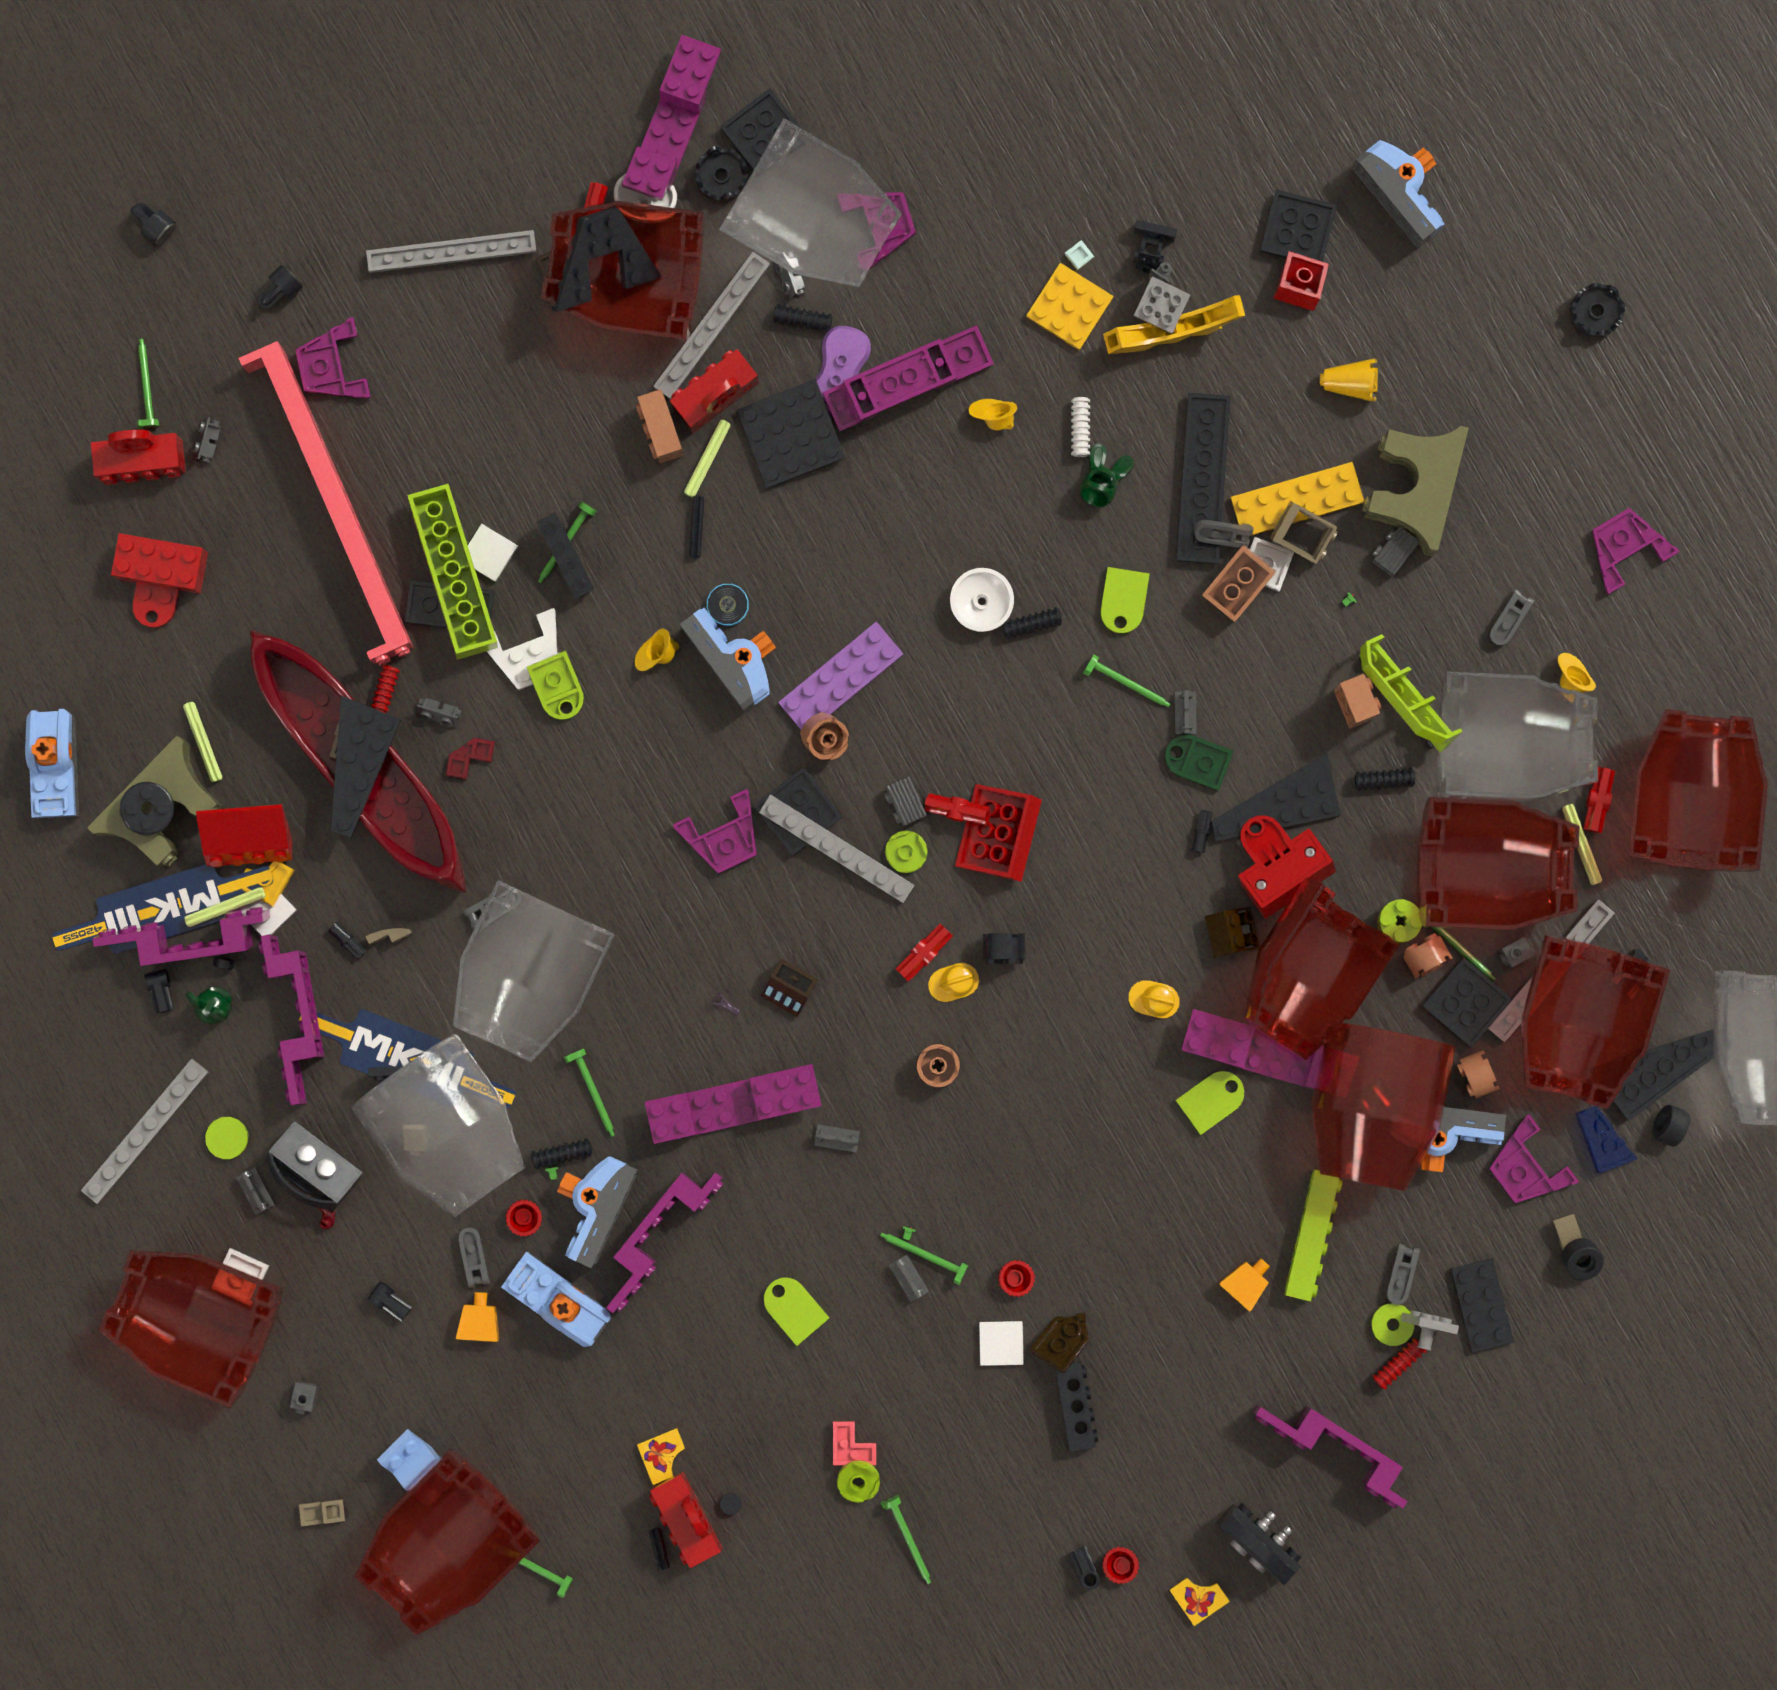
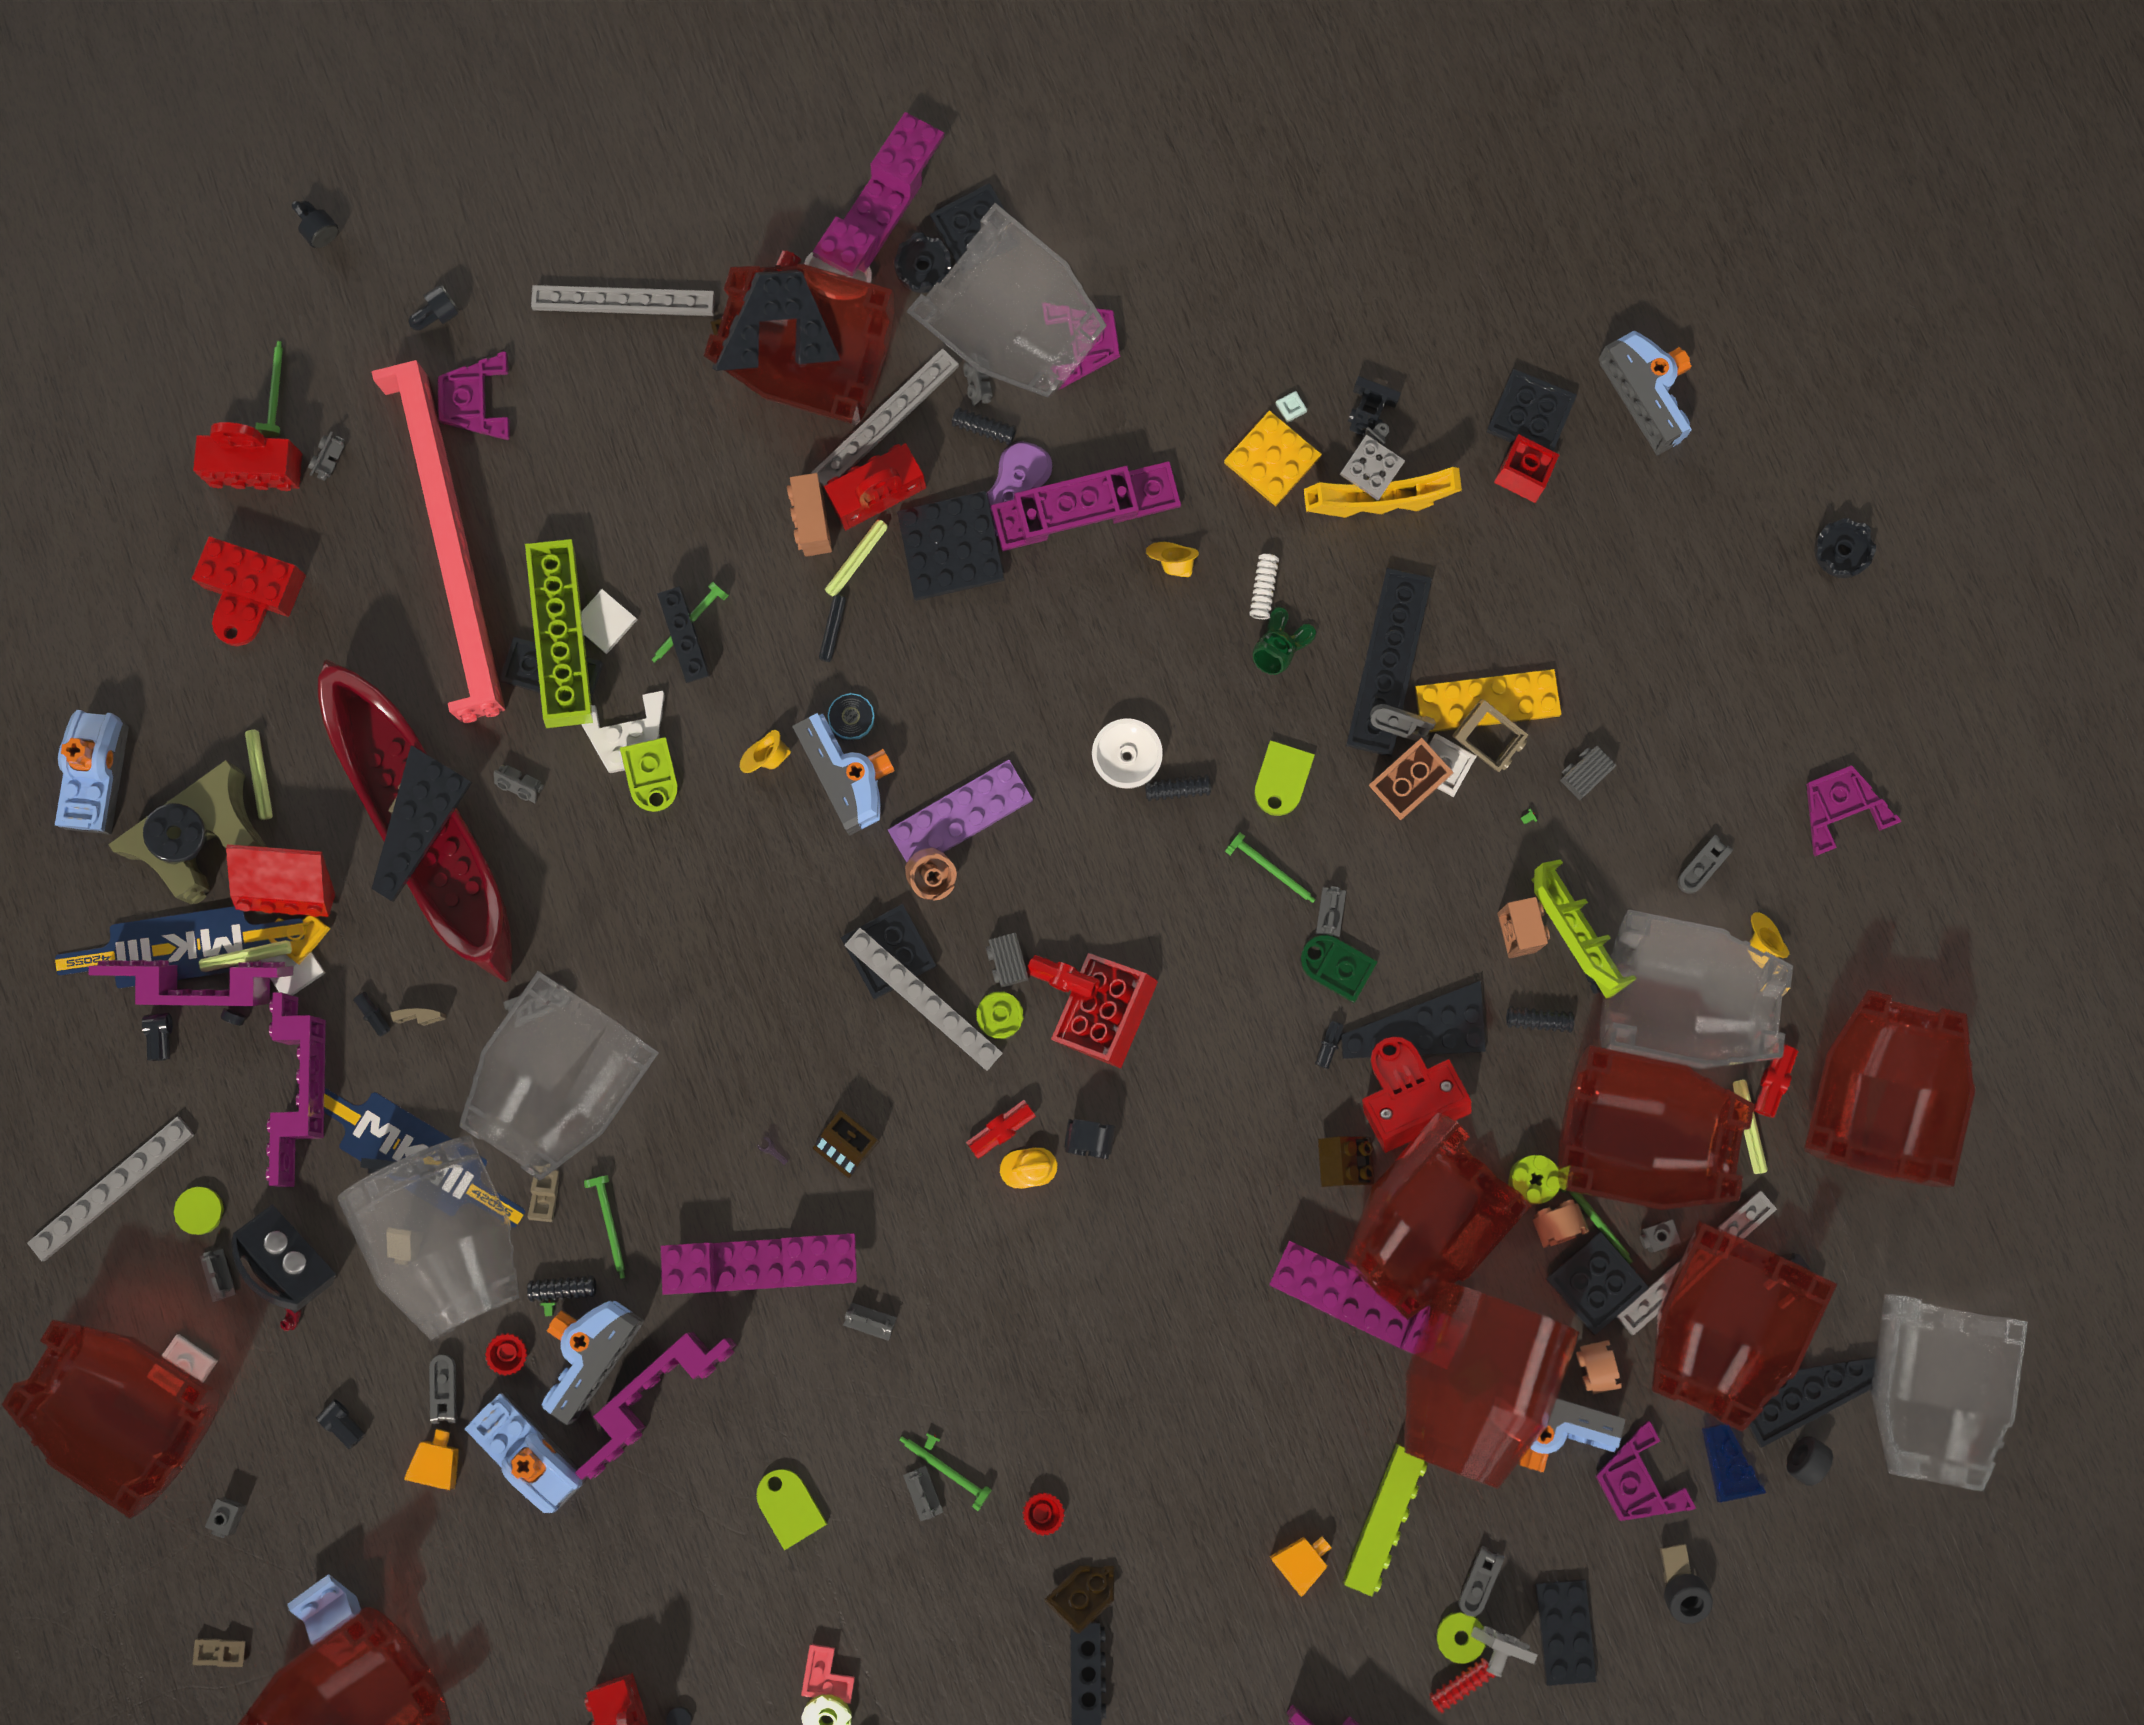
camera: 10 degrees right, 5 degrees down
(211, 1005) = (207, 1060): dark green piece -> none
(385, 688) = (465, 748): red piece -> none
(460, 759) = (532, 837): dark red tile -> none
(530, 1078) = (544, 1198): none -> dark tan slope
(659, 1454) = (609, 1648): yellow tile -> none
(728, 843) = (807, 974): magenta wing -> none
(944, 1055) = (984, 1249): nougat brick -> none
(1001, 1343) = (1014, 1585): white tile -> none
(1154, 999) = (1247, 1222): yellow piece -> none
(1210, 1101) = (1292, 1348): lime tile -> none
(1352, 379) = (1567, 581): yellow cone -> none
(1434, 472) = (1642, 689): olive piece -> none

